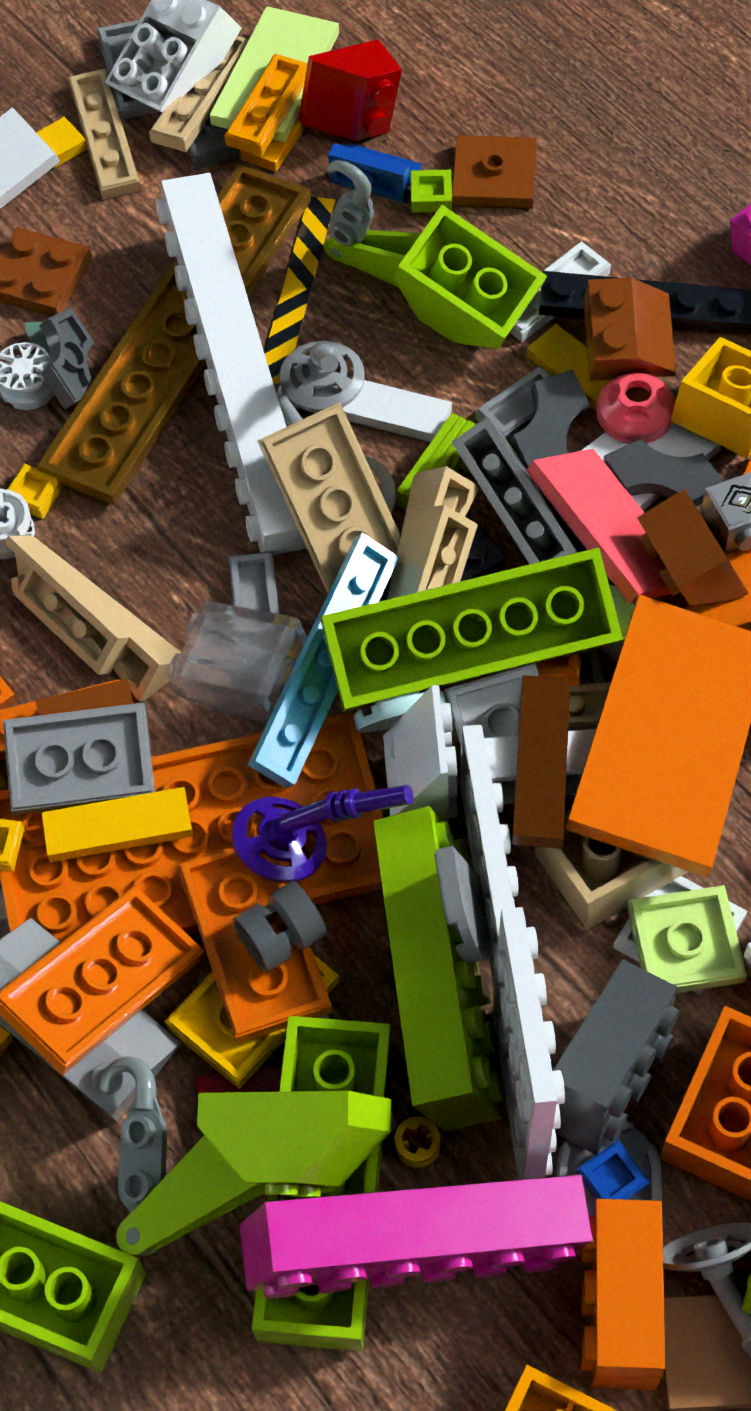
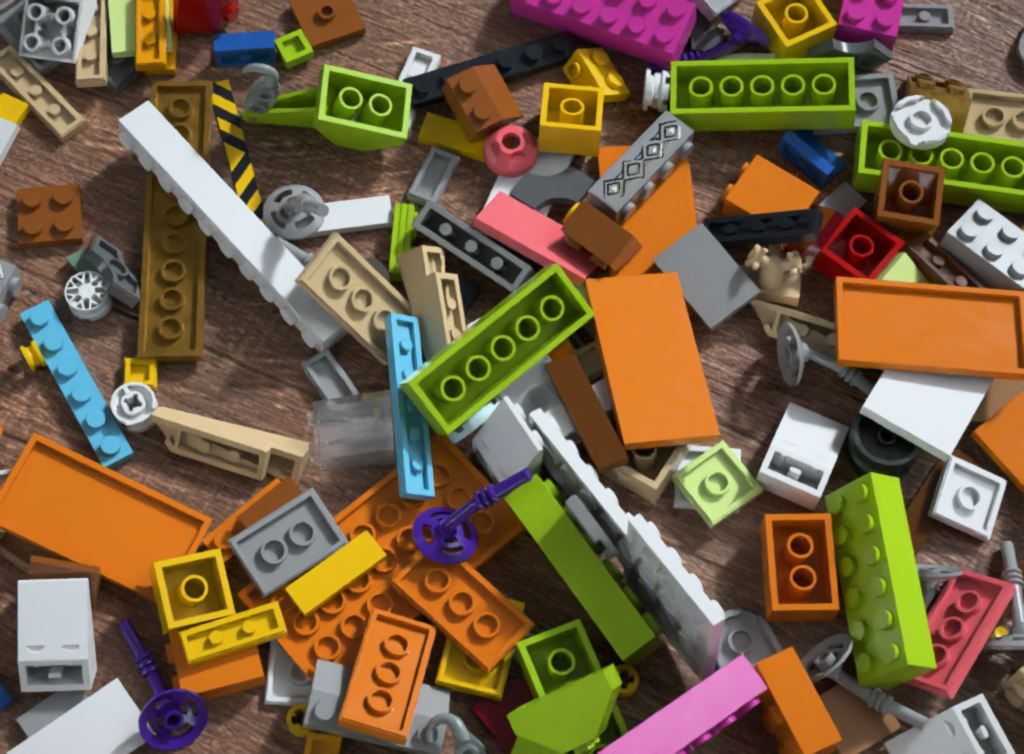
camera: 35 degrees left, 5 degrees up
(295, 918) = (484, 586): dark grey wheel -> none
(557, 404) = (459, 170): dark grey tile -> none
(613, 1053) = (719, 564): dark grey brick -> none
(613, 1174) = (749, 643): blue tile -> none

